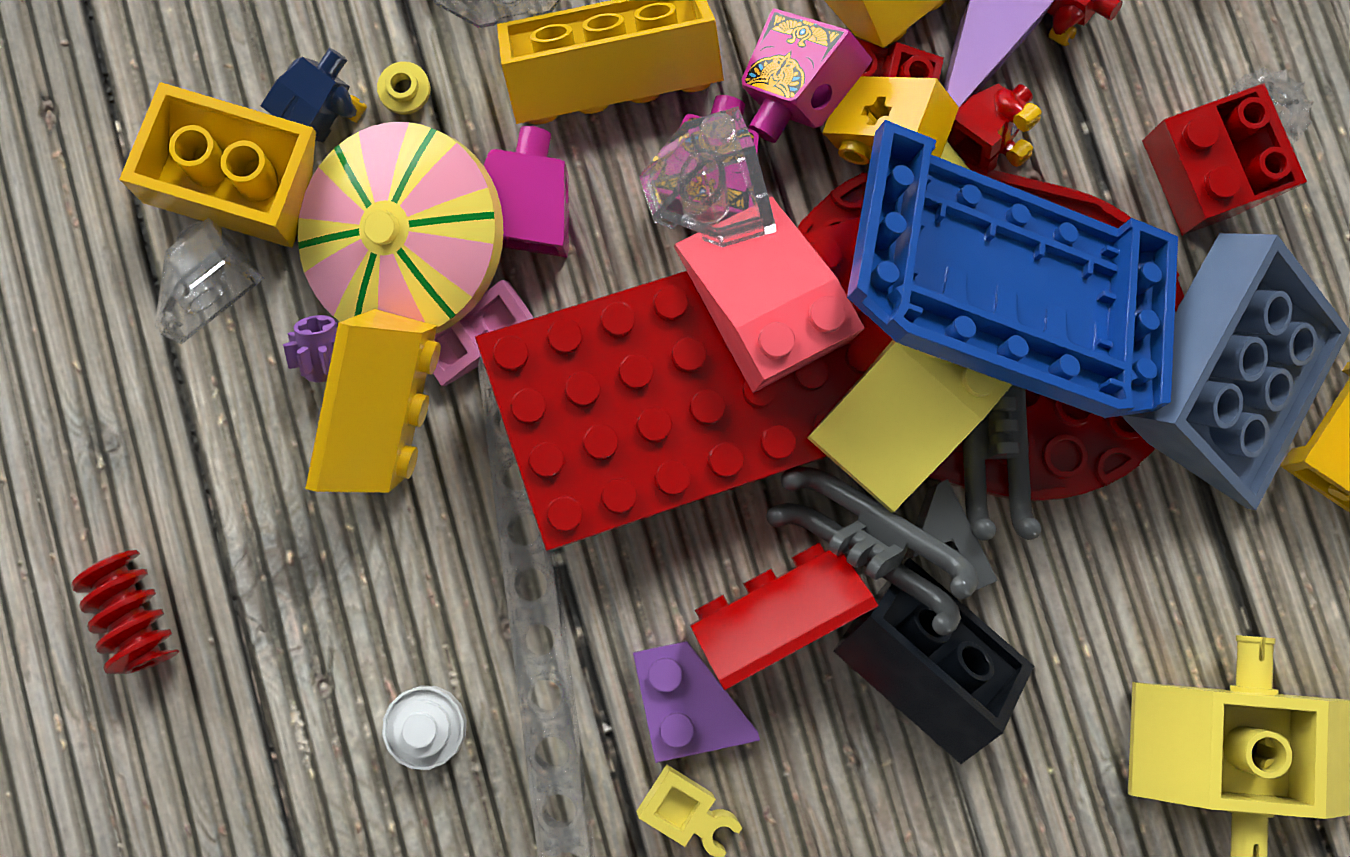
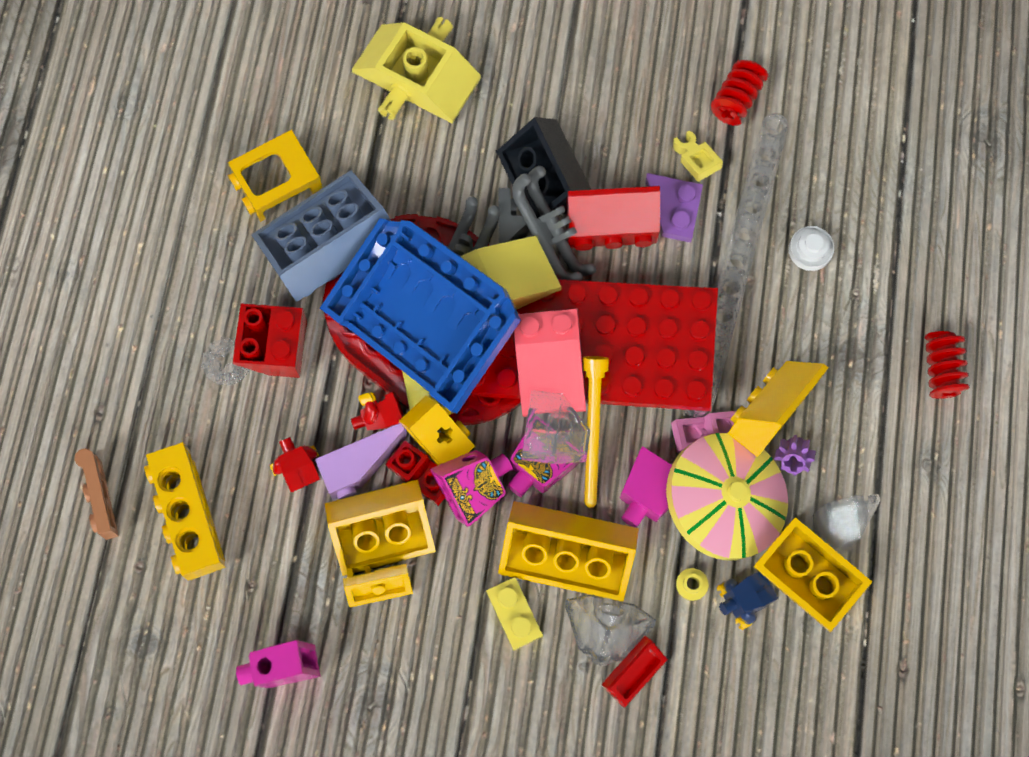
camera: 160 degrees left, 10 degrees down
(687, 308) = (595, 370): none -> yellow piece

